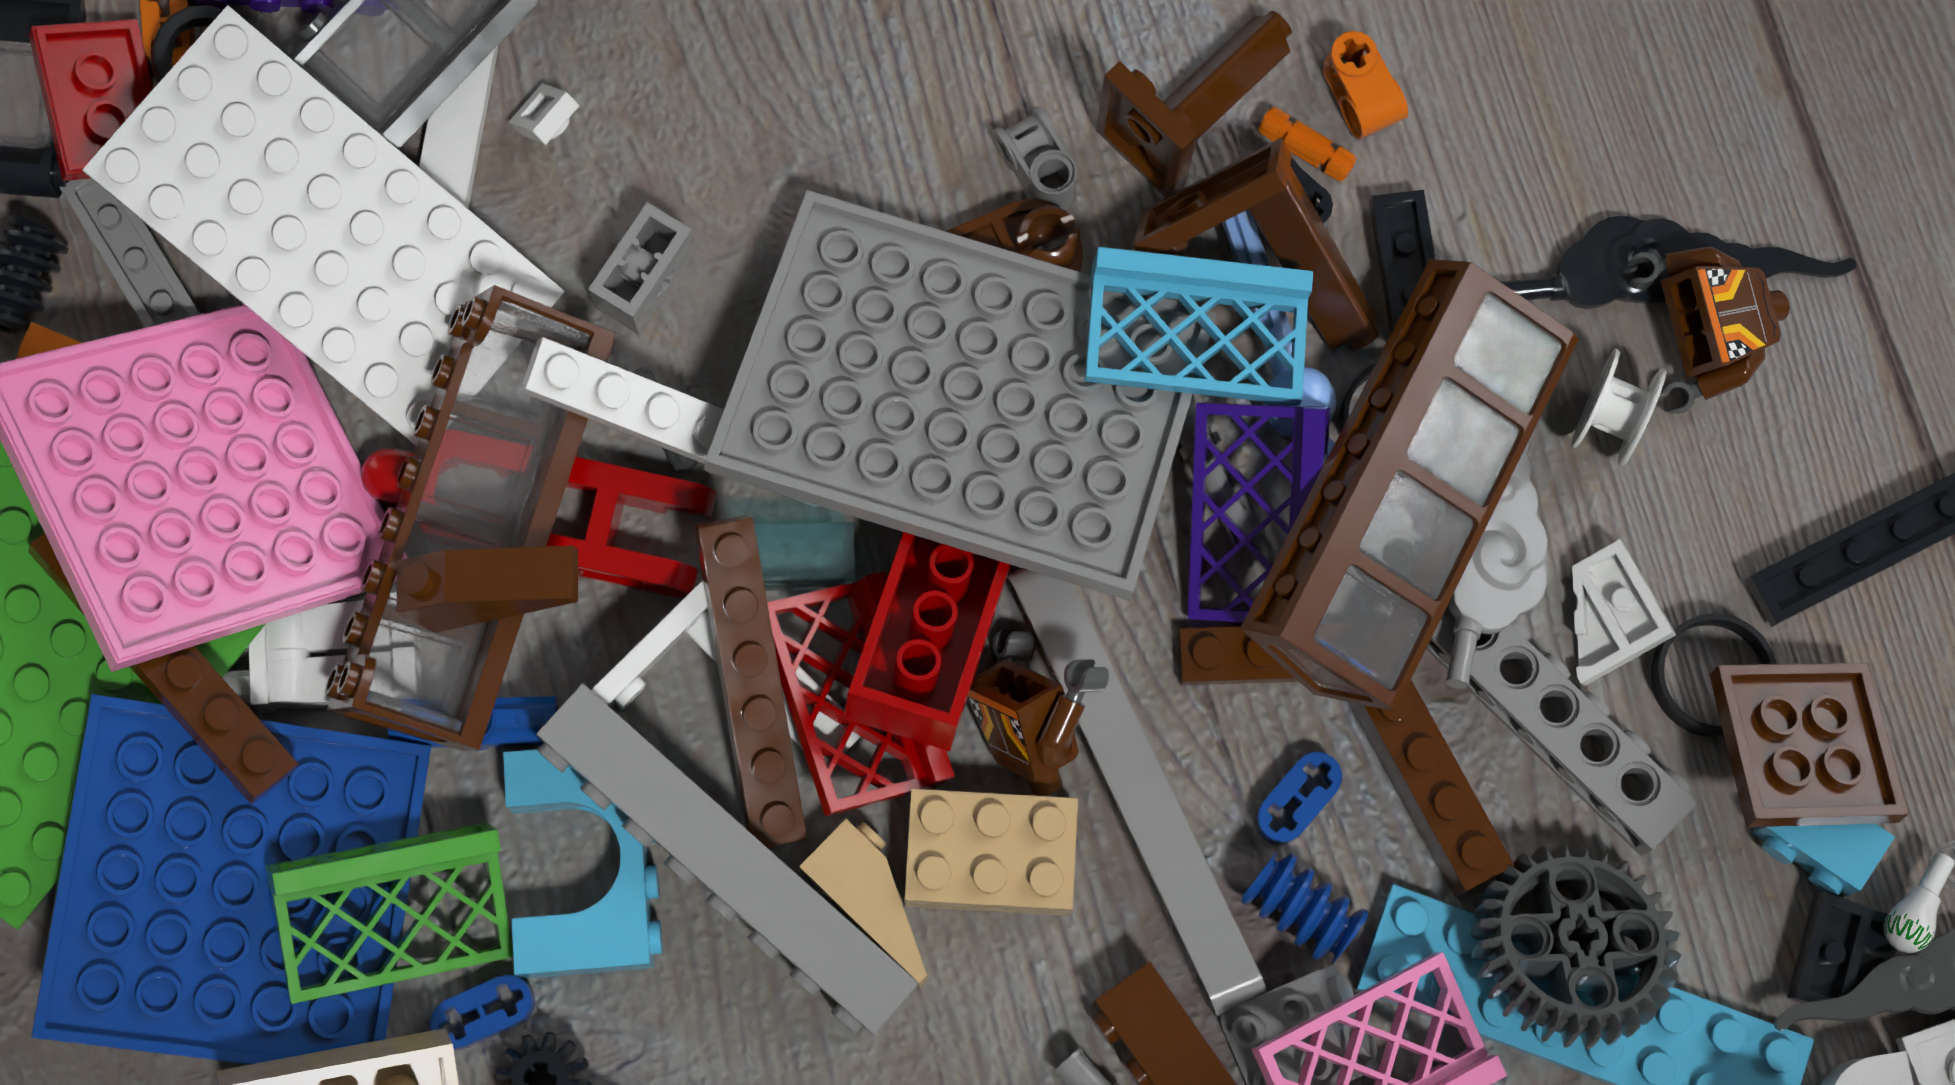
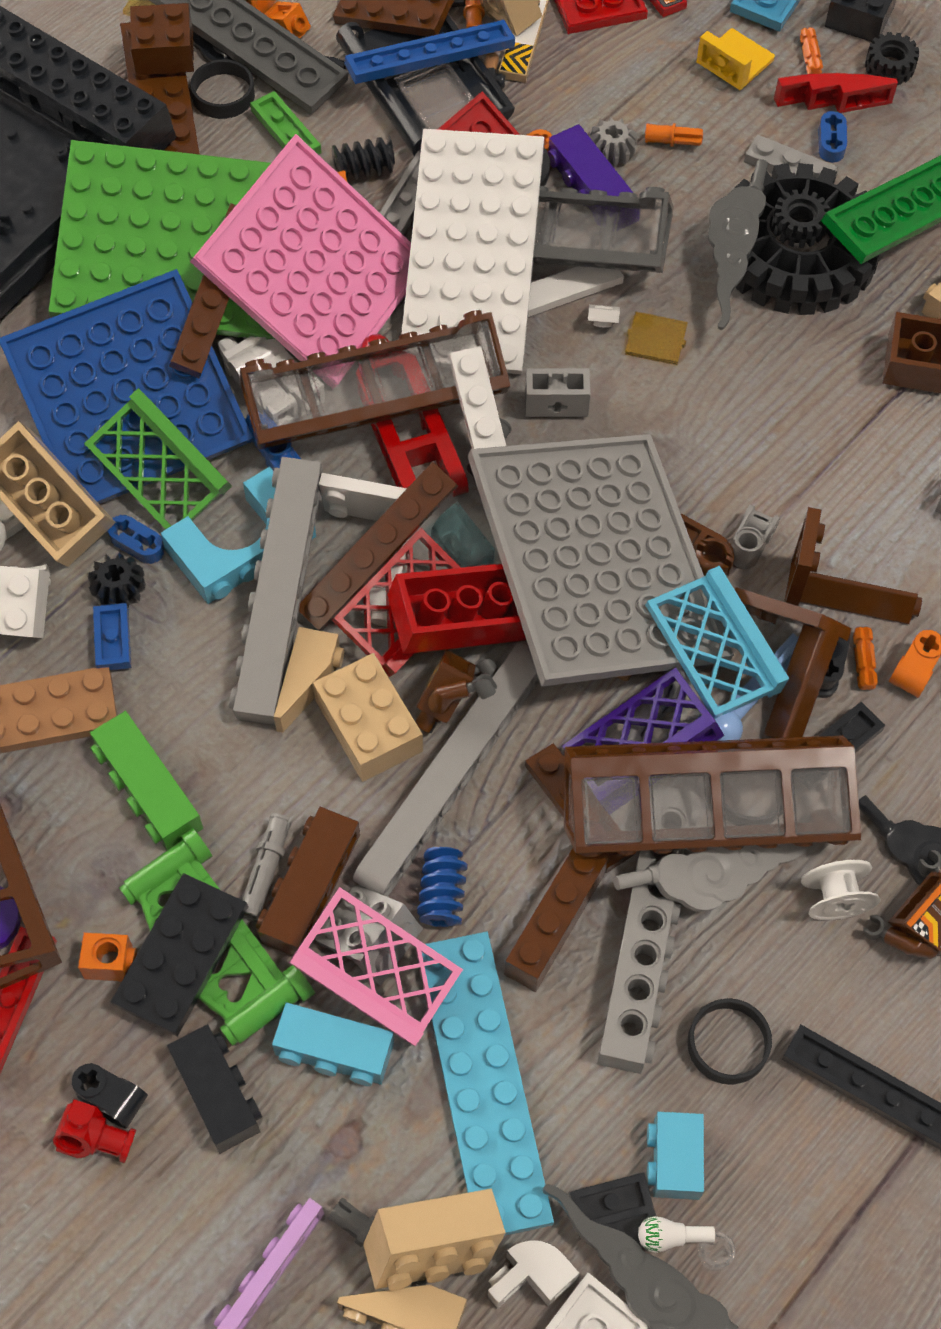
camera: 60 degrees right, 15 degrees down
(484, 584) = (339, 393): reddish brown slope -> none
(626, 67) = (656, 338): none -> clear yellow piece
(1308, 807) = (502, 865): blue beam -> none
(1574, 963) = (509, 1055): dark grey gear -> none
(1614, 613) = (724, 963): white wing -> none
(1808, 744) = (721, 1104): plate -> none

